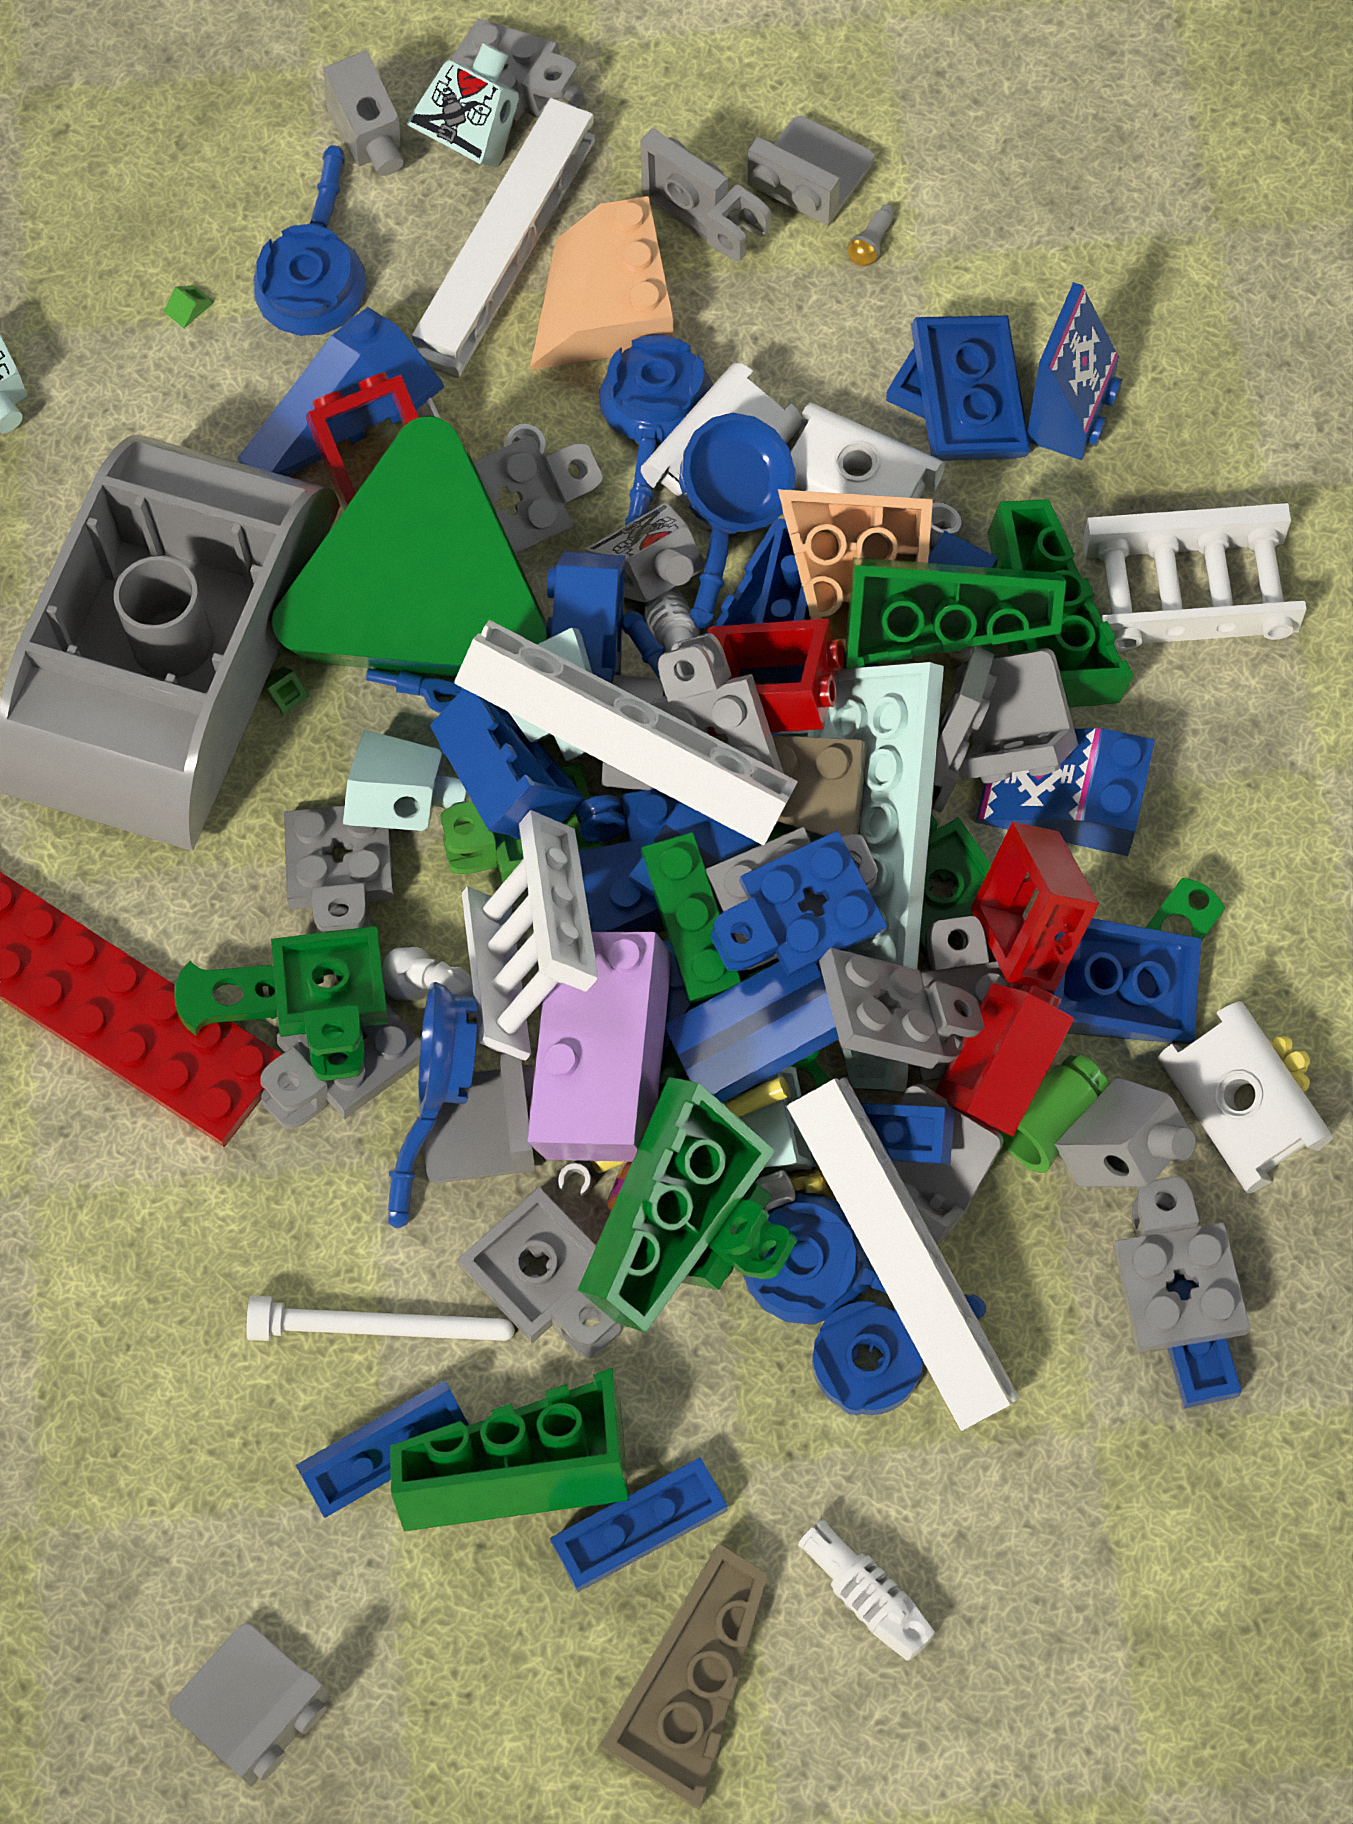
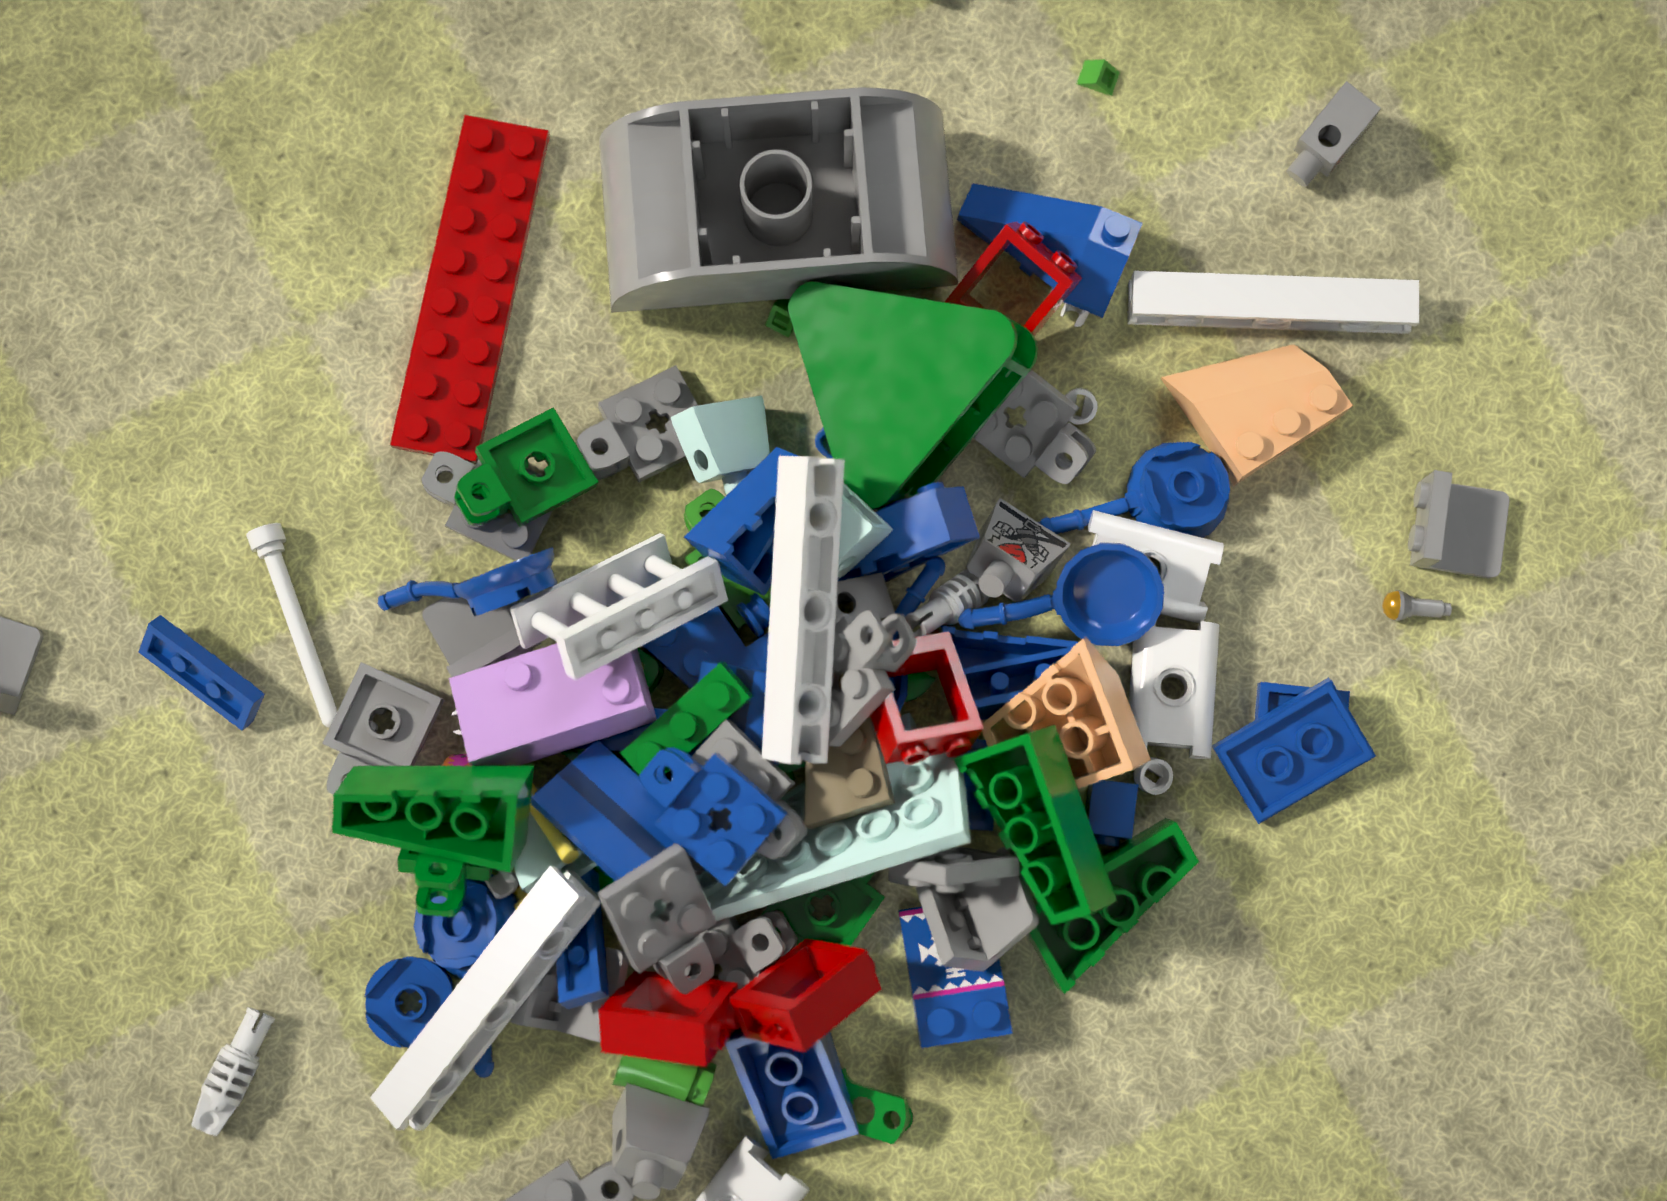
camera: 65 degrees right, 15 degrees up
(196, 989) = (493, 370): green piece -> none
(309, 275) = (1167, 161): blue piece -> none
(411, 971) = (578, 525): white arm -> none
(469, 107) = (1378, 218): light aqua torso -> none
(516, 1460) = (229, 786): green wedge -> none
(530, 67) = (1444, 253): light grey plate -> none
(639, 1526) = (217, 883): blue plate -> none
(683, 1694) = (106, 967): dark tan wing -> none
(699, 195) = (1376, 448): light grey plate -> none
(1074, 380) = (1329, 840): blue slope -> none
(1194, 530) = (1238, 1009): white fence -> none

